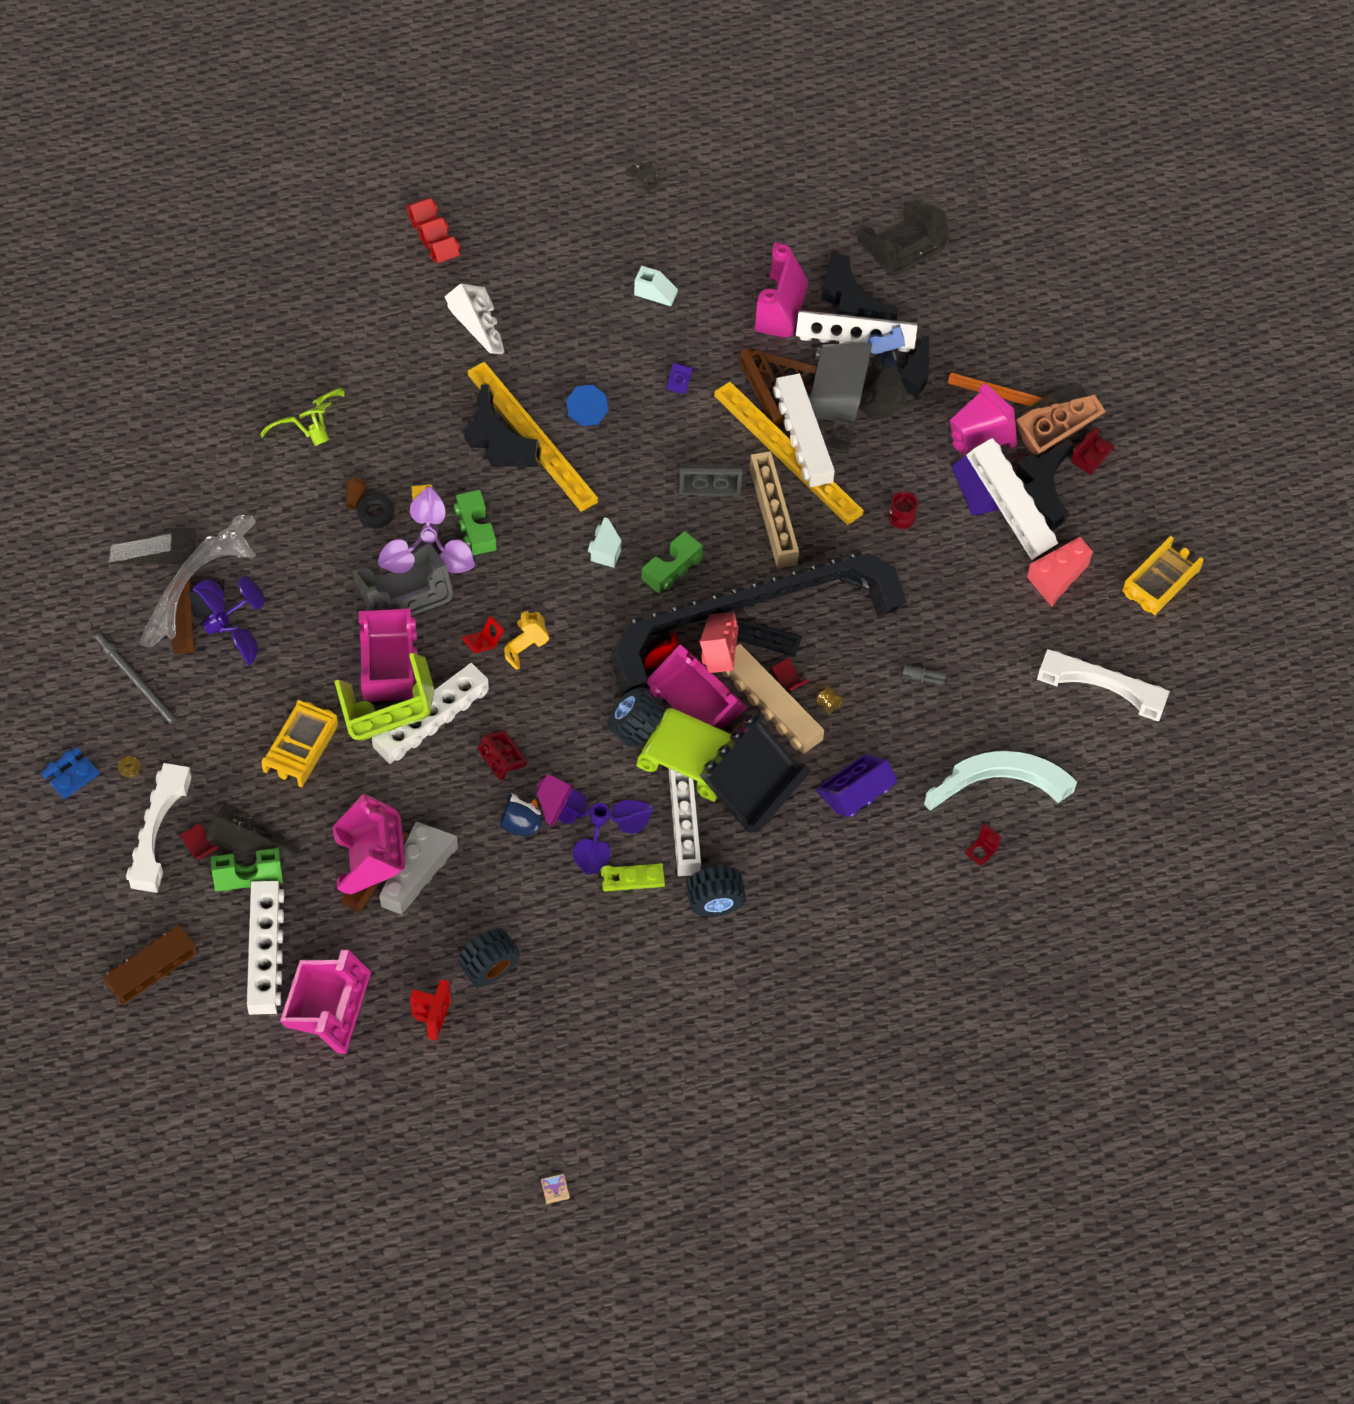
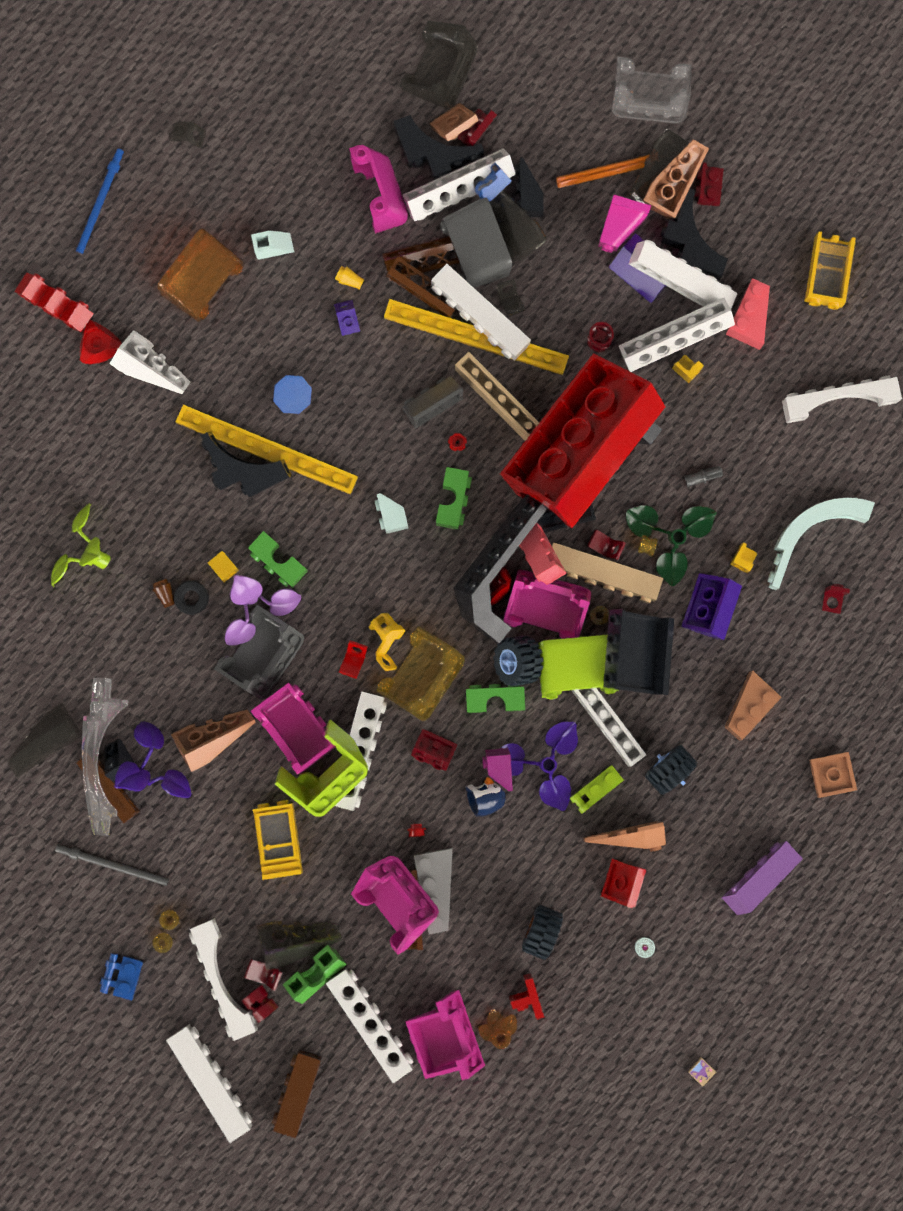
camera: 30 degrees left, 25 degrees up
(77, 906) = (209, 1083): none -> white brick
(150, 746) = (169, 926): none -> clear yellow plate
(176, 866) = (266, 1007): none -> dark red wheel
(290, 627) = (206, 742): none -> nougat wedge
(384, 1026) = (497, 1026): none -> clear orange plate
(434, 811) = (416, 830): none -> red plate
(443, 279) = (97, 344): none -> red hat
(540, 689) = (423, 675): none -> clear yellow windscreen
(560, 166) = (113, 168): none -> blue bar
(572, 272) = (198, 274): none -> clear orange windscreen
(577, 733) = (512, 696): none -> bright green arch
(579, 1042) = (644, 947): none -> light aqua tile
(601, 971) = (623, 883): none -> red bracket
(646, 935) = (643, 836): none -> nougat wedge
(703, 346) = (348, 277): none -> yellow cone
(710, 518) = (457, 437): none -> red plate
(739, 1043) = (762, 878): none -> medium lavender wedge
(826, 564) = (584, 438): none -> red piece
(834, 889) = (751, 706): none -> nougat wedge
(842, 733) = (674, 565): none -> dark green plant
(876, 998) = (833, 774): none -> nougat plate
(880, 282) = (454, 122): none -> nougat plate
(905, 297) = (471, 135): none -> dark red bracket
(915, 762) = (744, 558): none -> yellow panel
(970, 582) = (687, 368): none -> yellow panel
(985, 536) = (677, 334): none -> white brick
(1081, 356) = (651, 94): none -> clear windscreen

